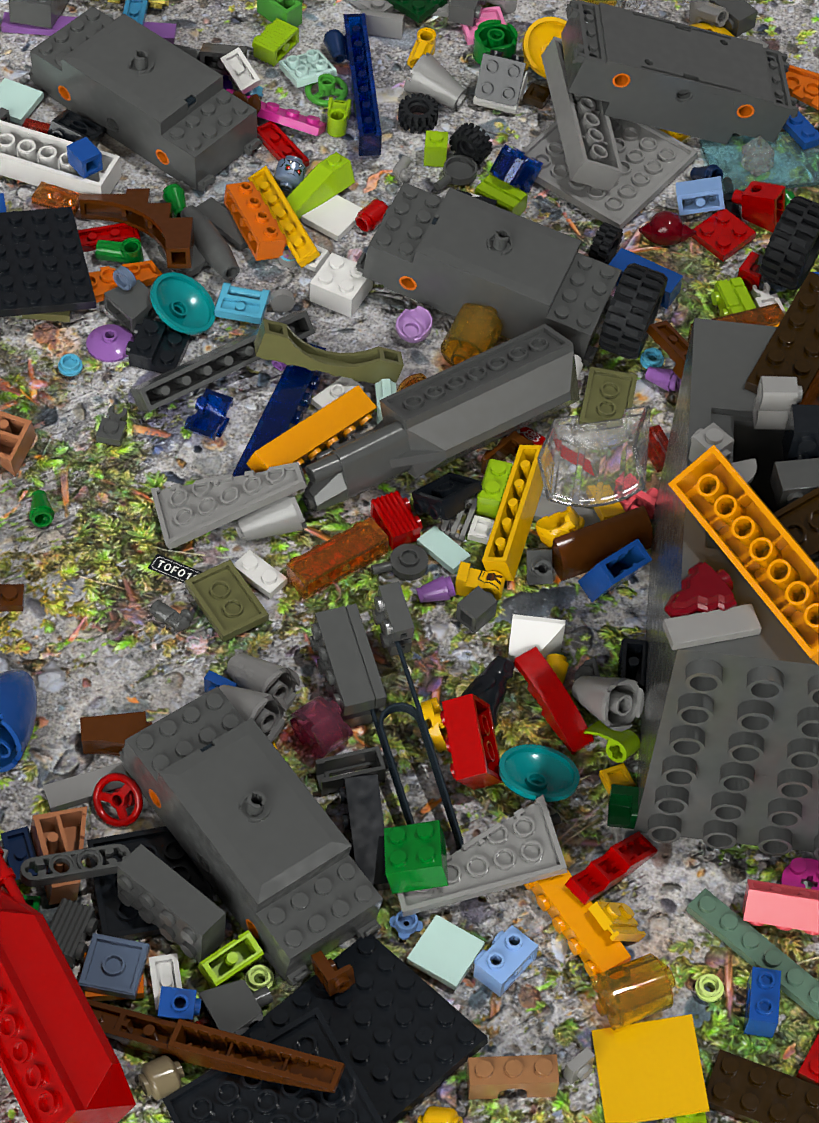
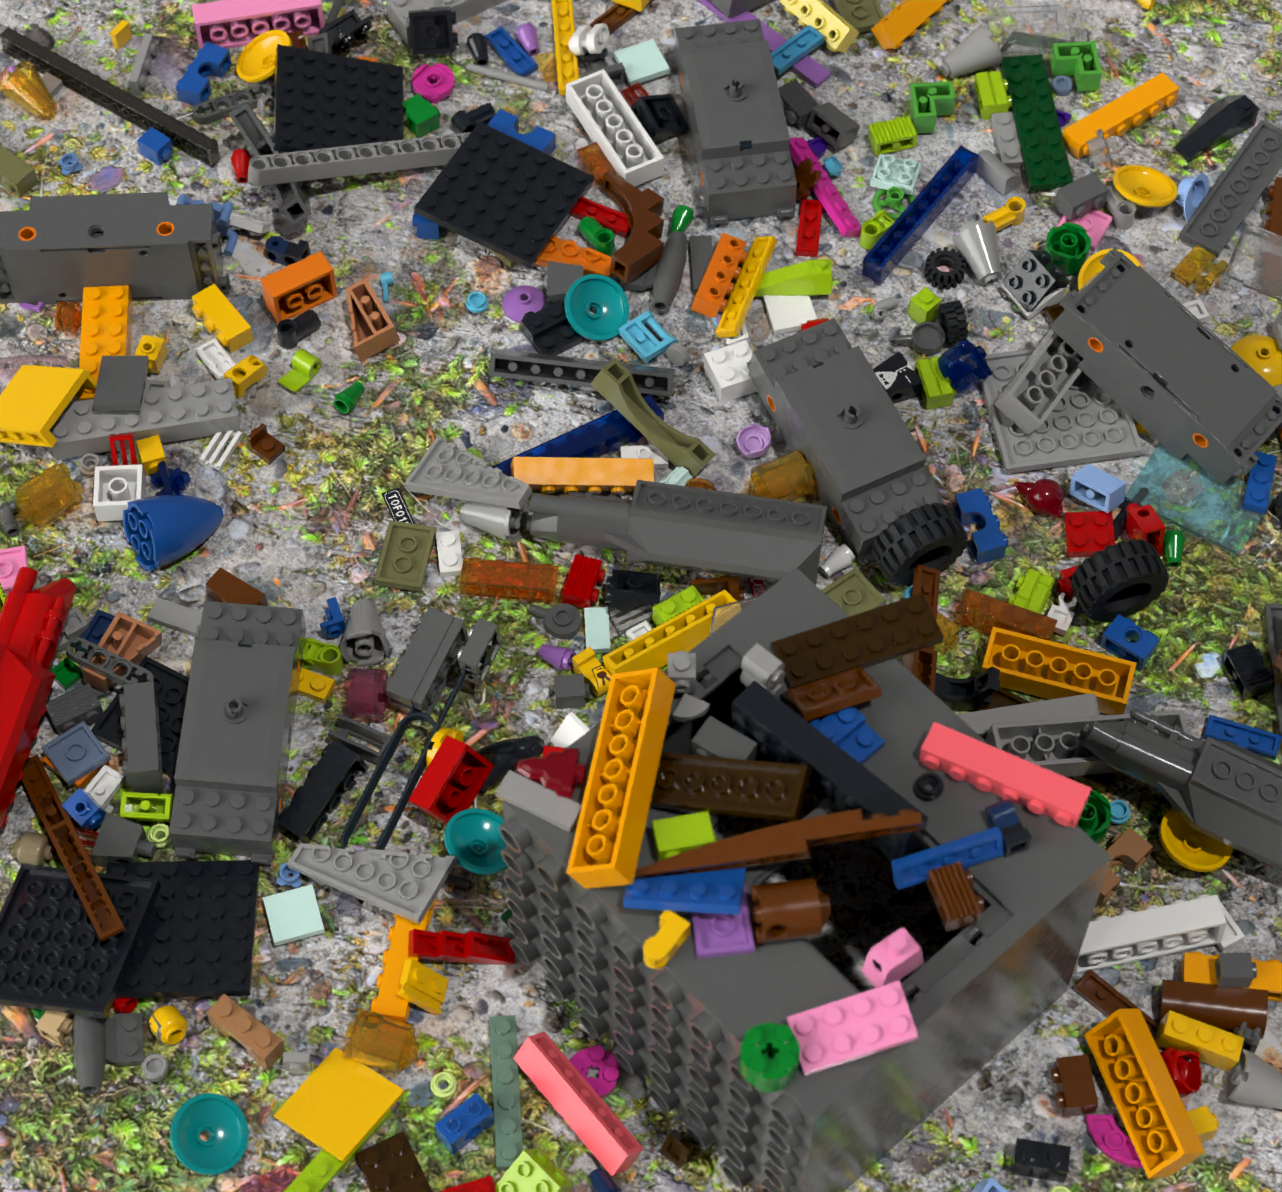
camera: 45 degrees right, 5 degrees up
(84, 157) = (630, 142): blue brick -> none
(113, 428) = (460, 372): dark grey plate -> none
(124, 278) = (567, 259): sand blue tile -> none
(129, 793) = (189, 642): red piece -> none
(167, 615) = (355, 538): dark grey arm -> none
(211, 414) = (531, 411): clear blue cylinder -> none
(240, 70) = (828, 144): white plate -> none
(262, 707) = (321, 648): light grey cone -> none
(289, 172) = (786, 253): sand blue head -> none
(331, 978) = (194, 867): reddish brown bracket -> none
(335, 45) = (936, 163): dark blue cone -> none
(415, 857) = (325, 831): green brick -> none
(505, 960) = (325, 952): light blue brick -> none
(606, 243) = (972, 475): black tyre -> none
(706, 172) = (1128, 474): dark blue cone -> none

